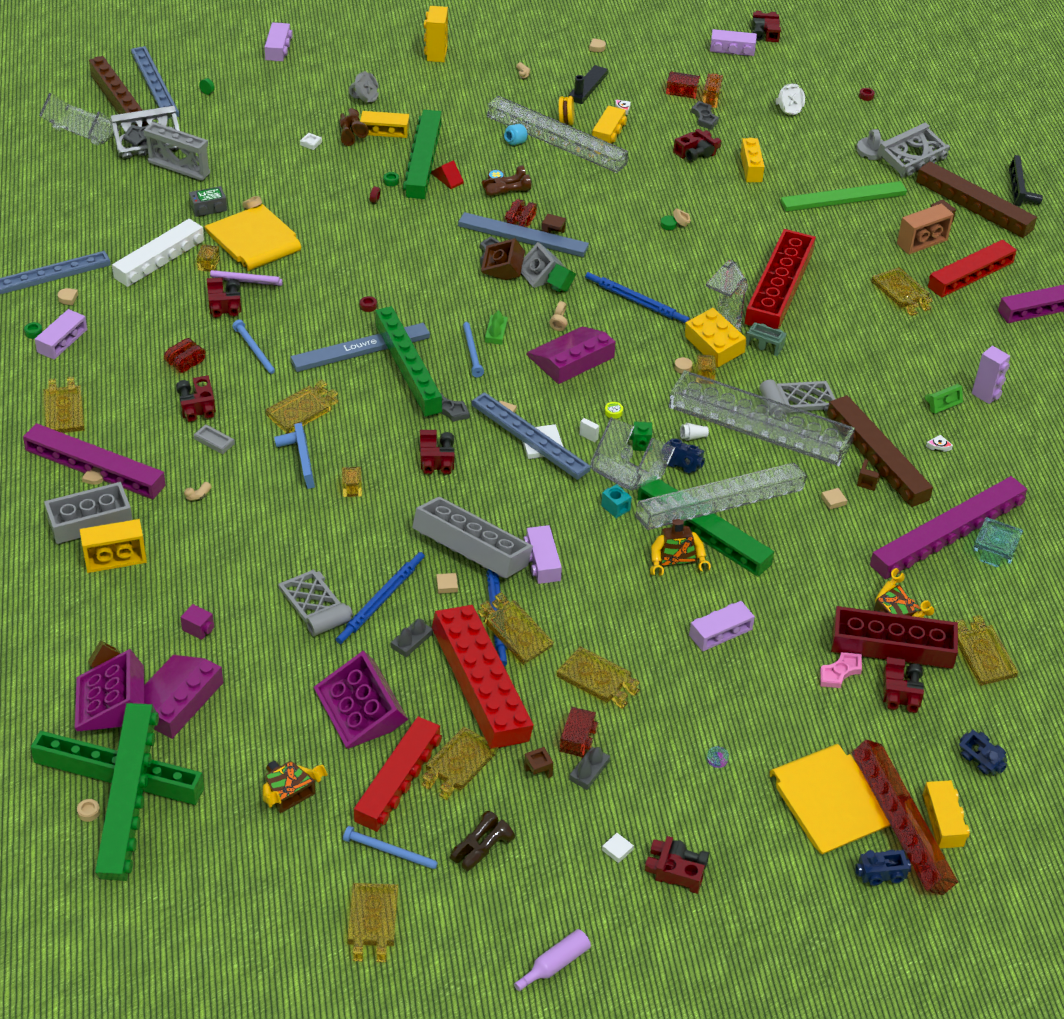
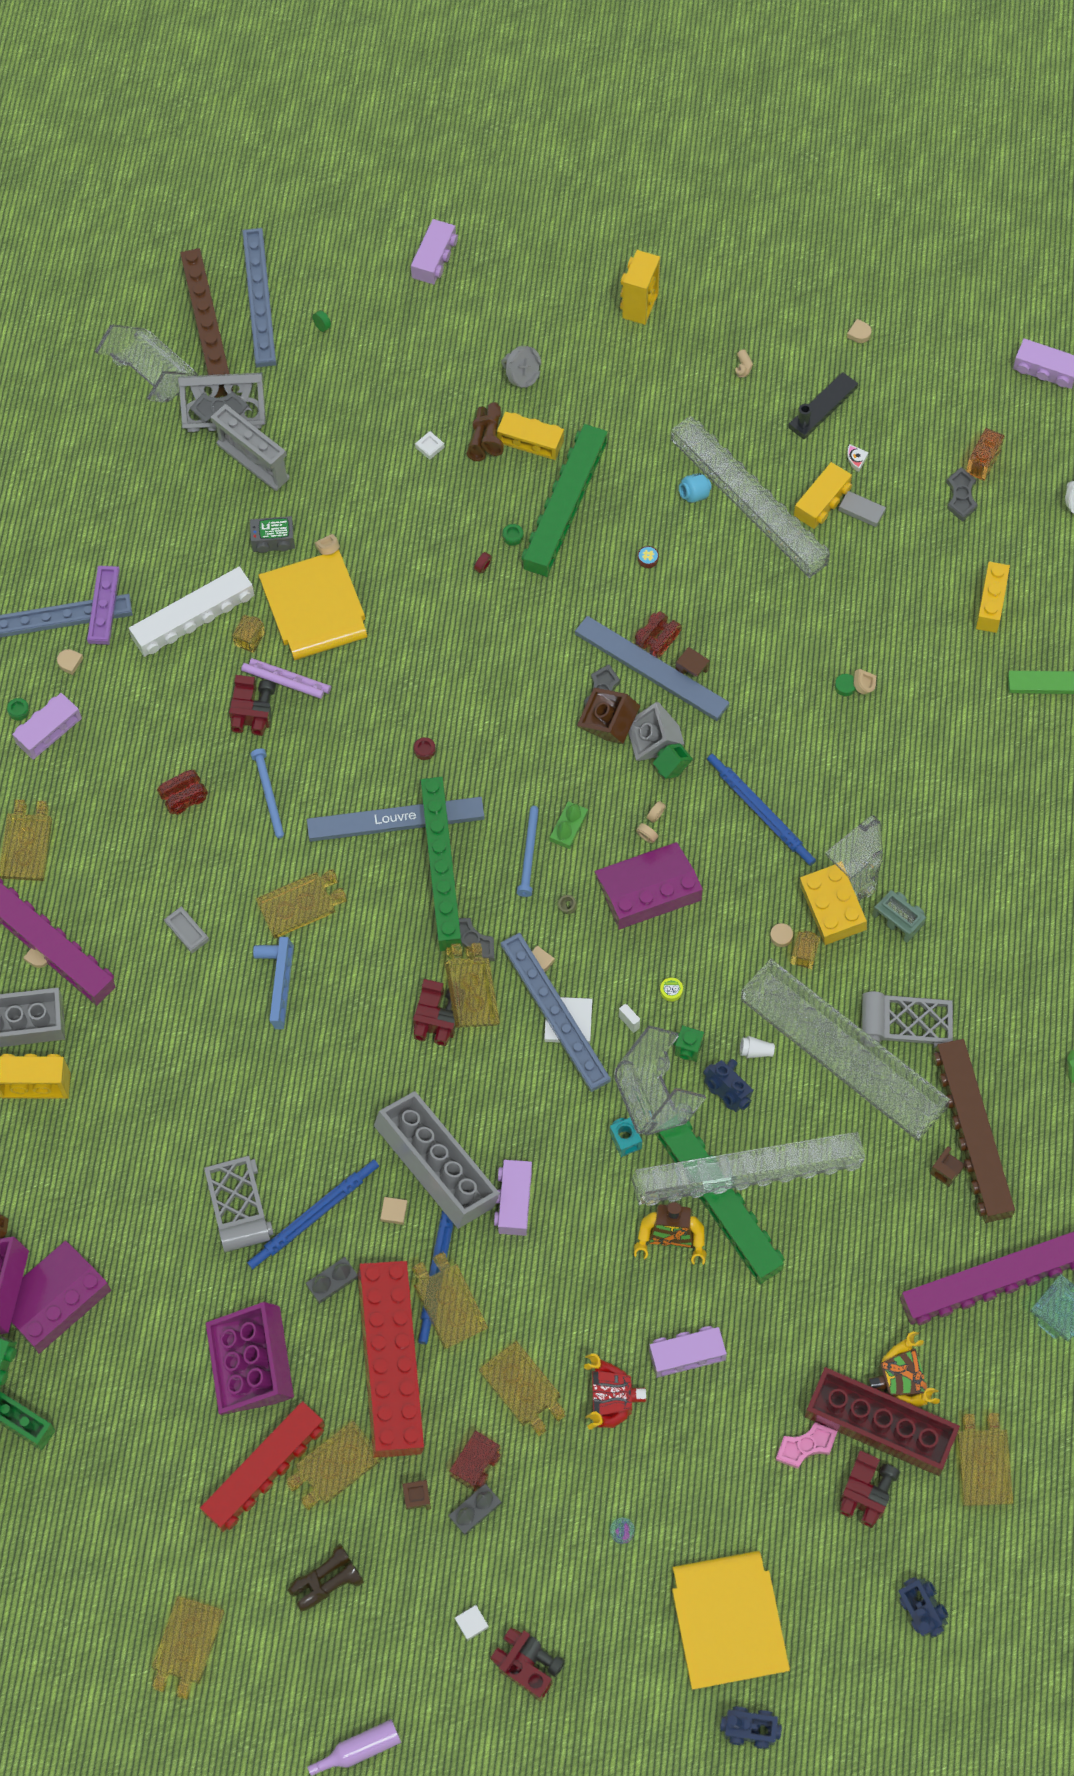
camera: 20 degrees right, 20 degrees up
(86, 258) = (103, 605): none -> medium lavender tile
(192, 495) = (147, 1012): tan arm -> none
(197, 621) = (101, 1204): magenta brick -> none
(200, 402) = (180, 872): dark red hips -> none
(290, 784) = (141, 1453): torso -> none
(350, 835) = (191, 1532): medium blue bar -> none
(351, 481) = (325, 1035): clear yellow brick -> none
(448, 175) = (587, 543): red slope -> none
(459, 429) = (471, 987): none -> clear yellow tile
(499, 185) = (642, 575): reddish brown piece -> none
(518, 373) = (563, 905): none -> olive hinge
(566, 110) = (773, 459): yellow head -> none
(638, 131) = (862, 508): none -> light grey tile
(671, 662) = (611, 1394): none -> torso
(682, 85) = (949, 434): clear red brick -> none
(696, 144) = (932, 547): dark red hips -> none
(780, 279) = (951, 823): red brick -> none
(834, 498) = (892, 1190): tan tile -> none
(904, 818) = (797, 1670): clear red brick -> none
(939, 443) = (1057, 1134): white tile -> none
(945, 814) = (849, 1677): yellow brick -> none

